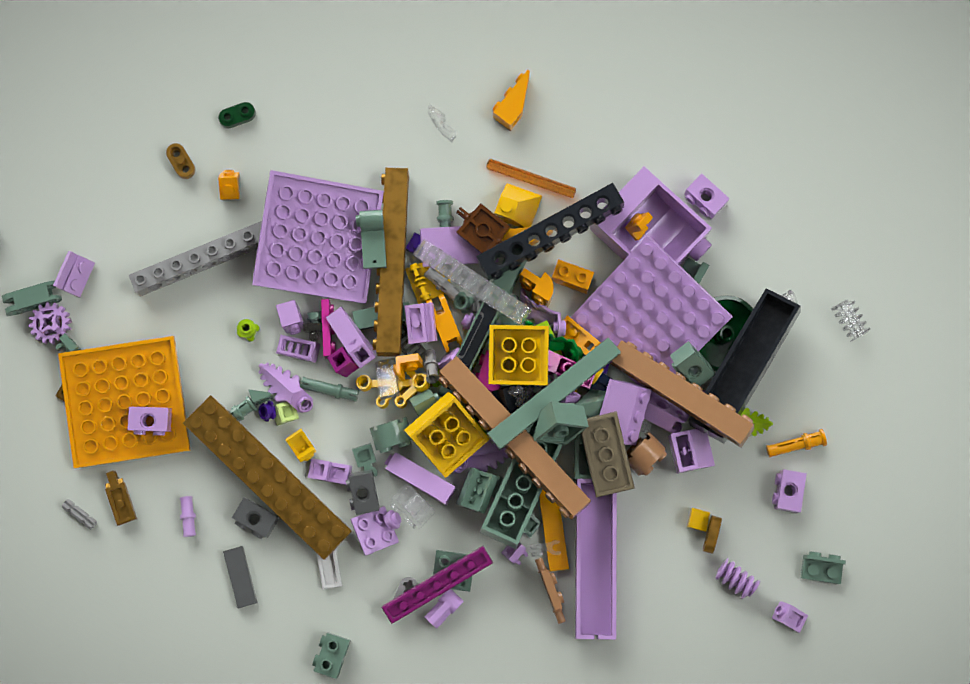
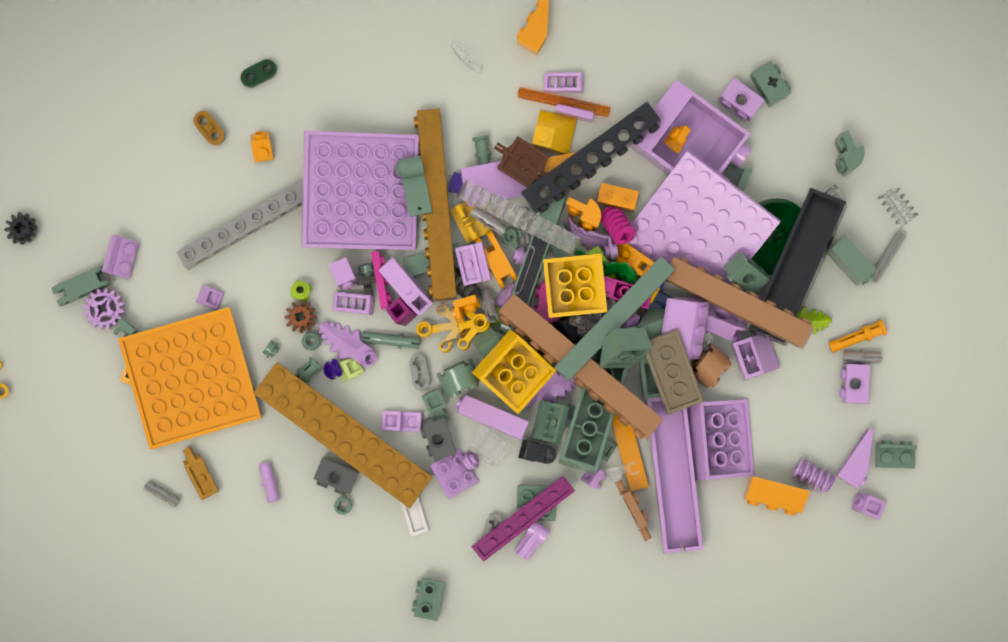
camera: 10 degrees left, 5 degrees up
(138, 415) = (229, 387): lavender brick -> none
(157, 325) = (209, 297): none -> lavender slope
(209, 383) = (271, 349): none -> sand green plate
(240, 577) = (328, 535): dark grey tile -> none
(244, 347) = (299, 310): none -> dark orange gear
(244, 380) = (307, 336): none -> sand green plate
(253, 546) = (337, 503): none -> sand green bush
(260, 396) = (323, 356): sand green slope -> none
(301, 445) = (371, 399): yellow bracket -> none
(358, 424) = (414, 373): none -> light grey beam
(457, 518) = (533, 452): none -> black piece
(534, 152) = (564, 75): none -> lavender slope
(538, 188) = (580, 114): none -> lavender tile
(569, 303) = (617, 225): none -> dark pink piece
(647, 530) = (721, 439): none -> lavender slope
(696, 593) = (775, 495): none -> light orange slope
(698, 519) = (769, 422): yellow slope -> none
(712, 534) = (784, 435): pearl gold beam -> none
(737, 174) = (770, 94): none -> sand green brick
(782, 572) = (857, 463): none -> lavender slope
(799, 367) = (851, 261): none -> sand green brick
(799, 465) = (862, 357): none -> light grey axle
(808, 262) = (850, 155): none -> sand green brick
(835, 368) = (888, 255): none -> light grey axle

